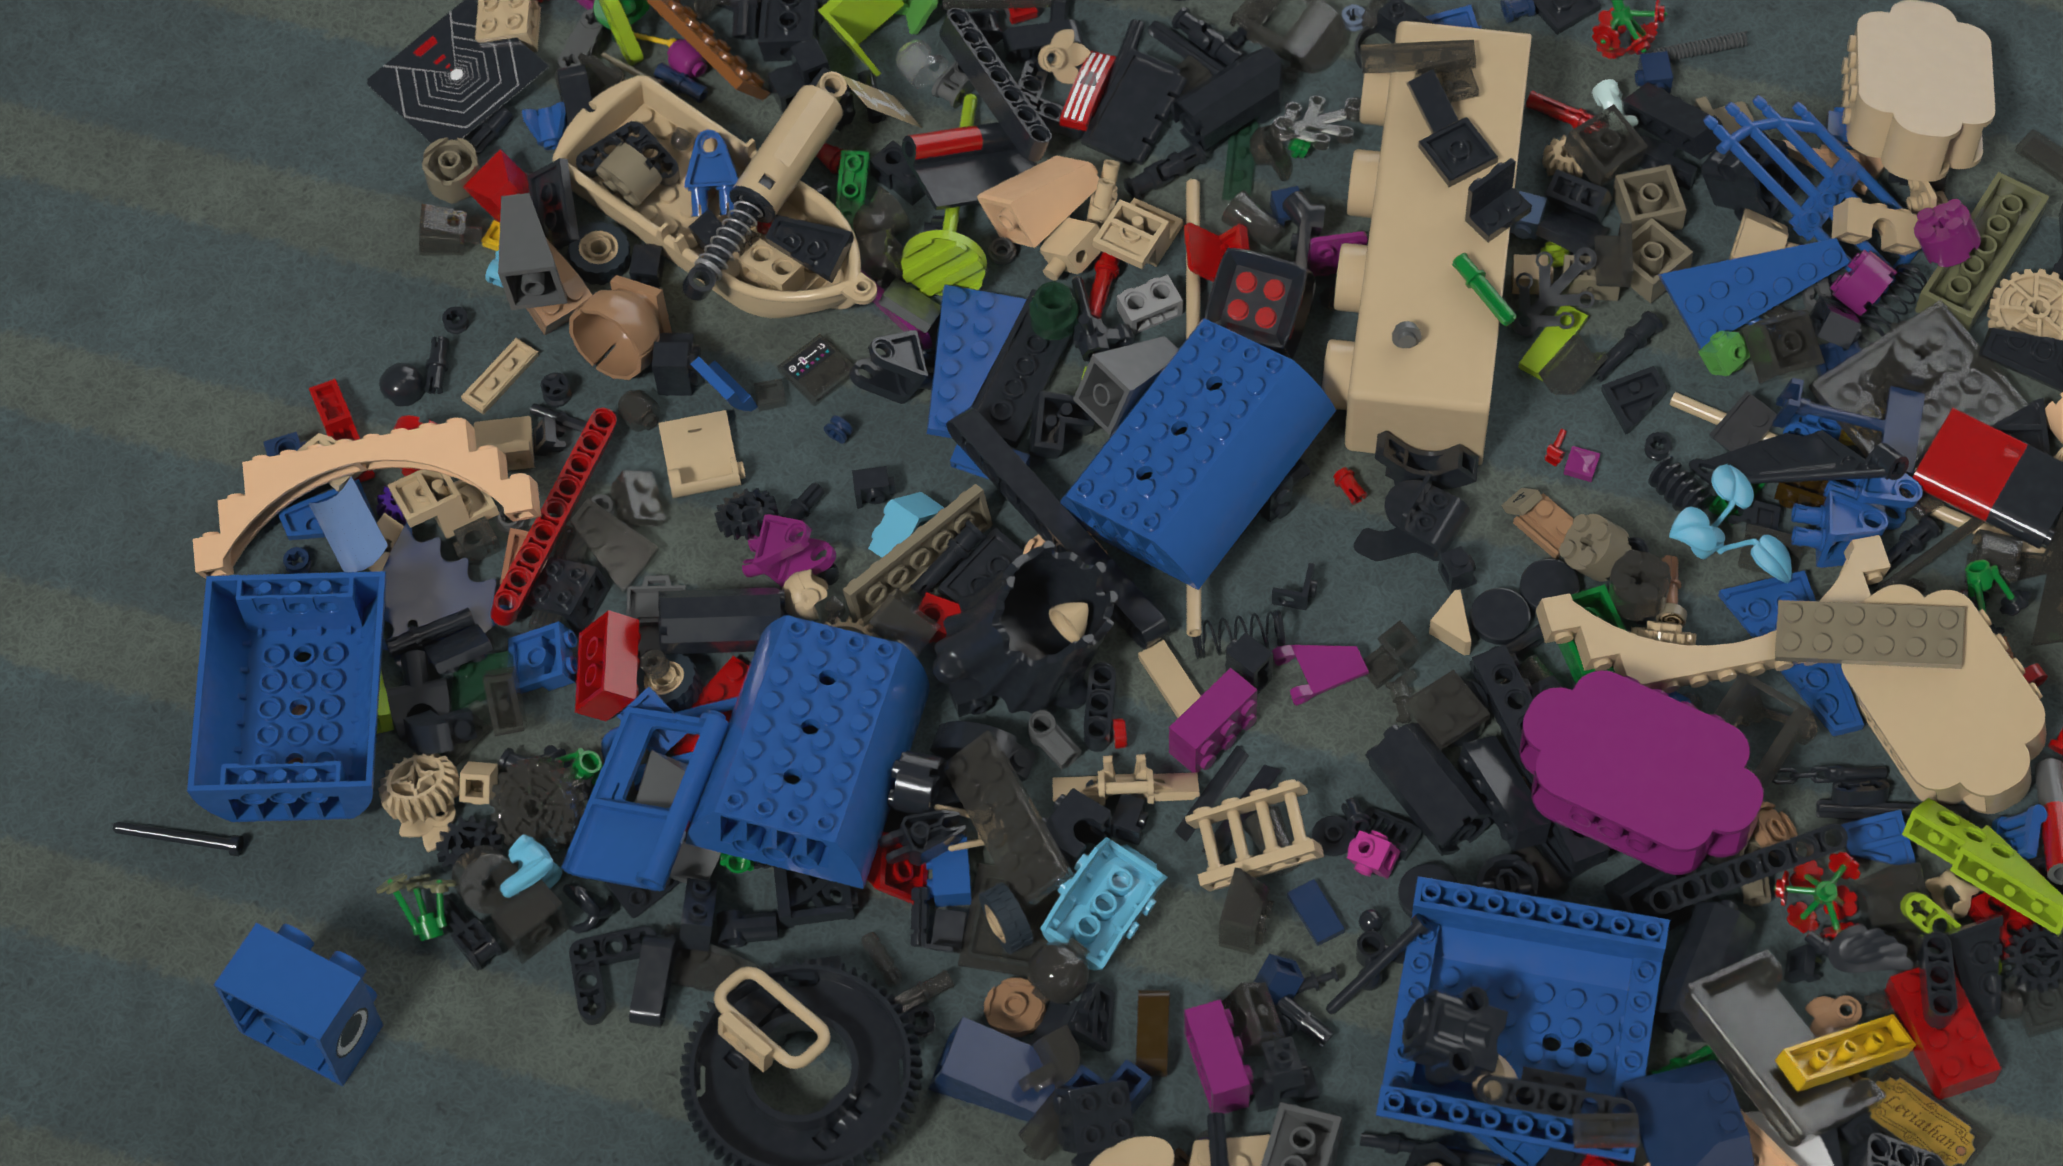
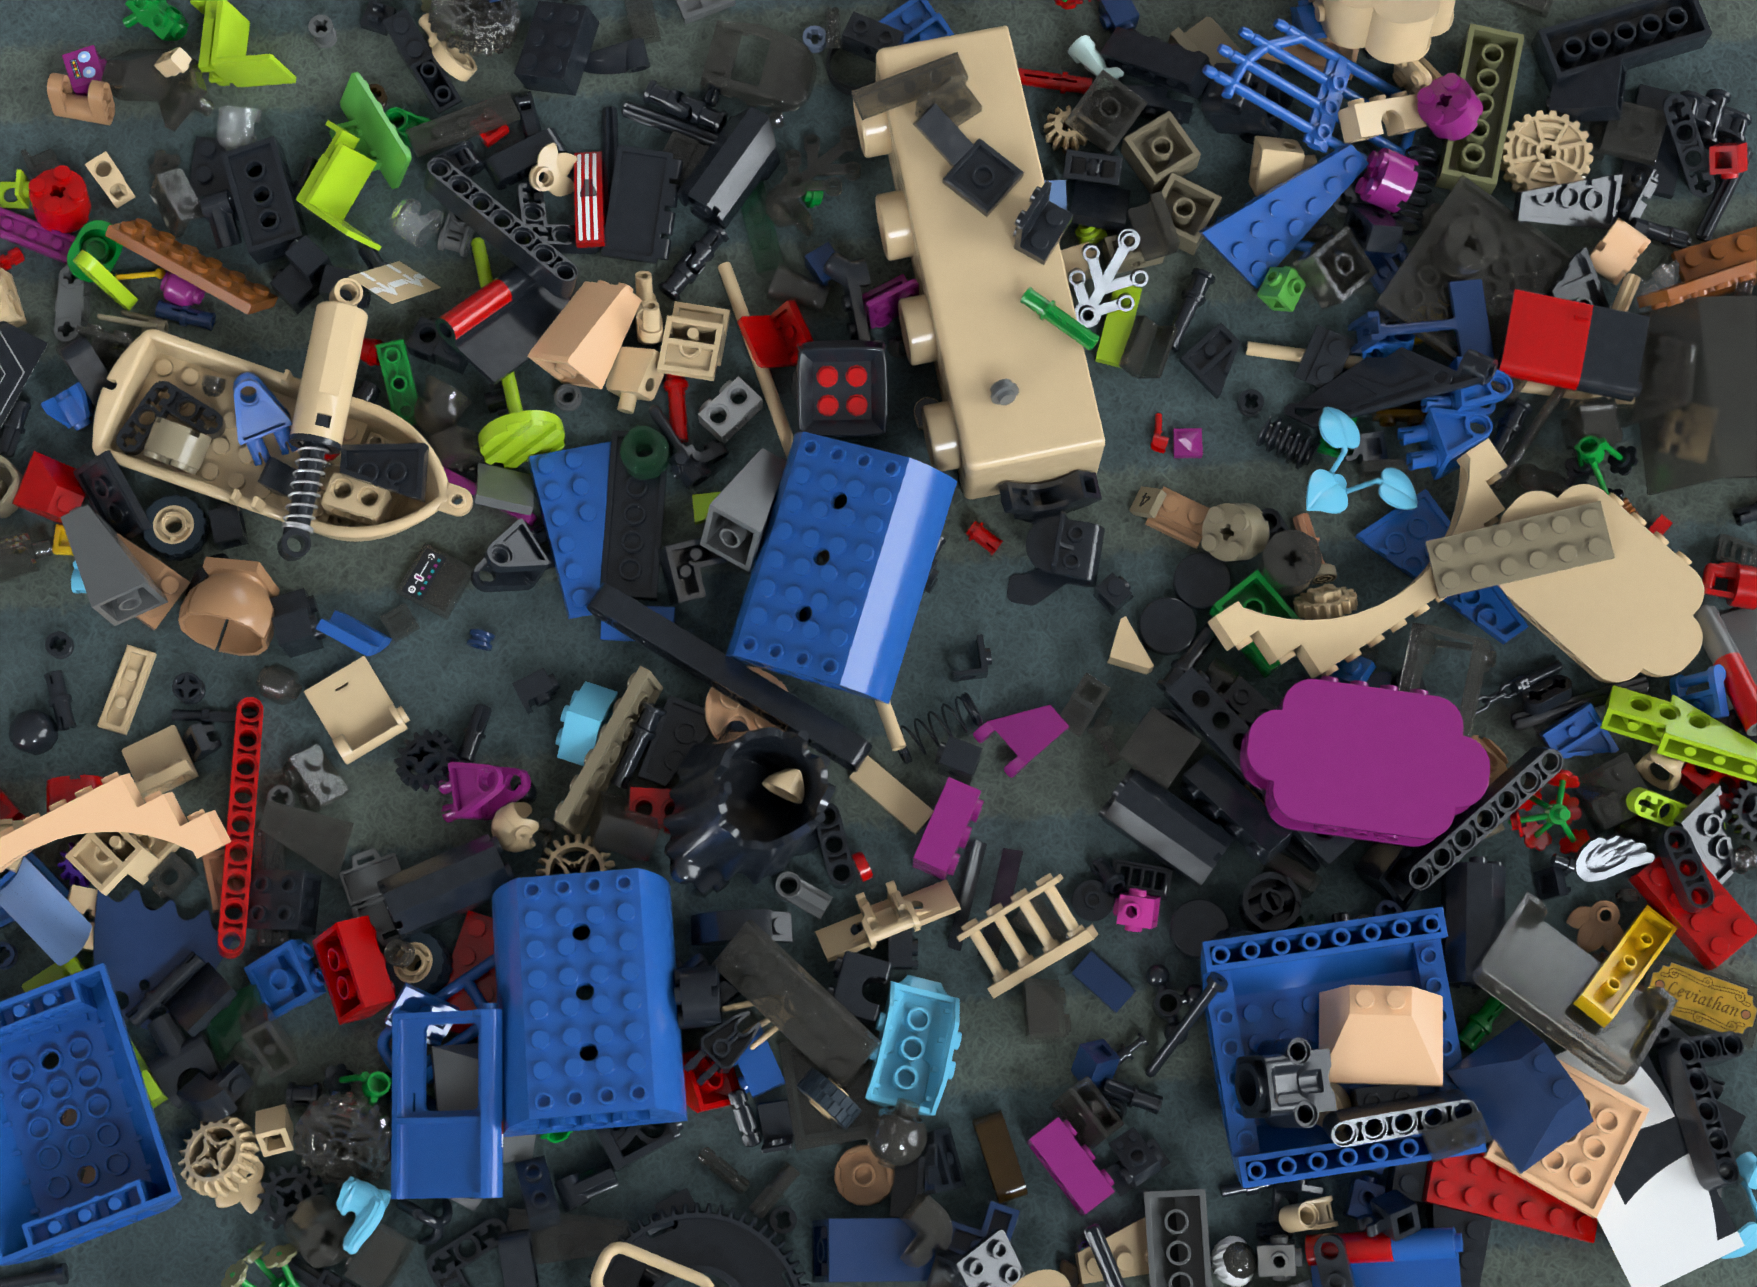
camera: 25 degrees left, 15 degrees up
(1570, 1025) = (1382, 1035): none -> light nougat slope

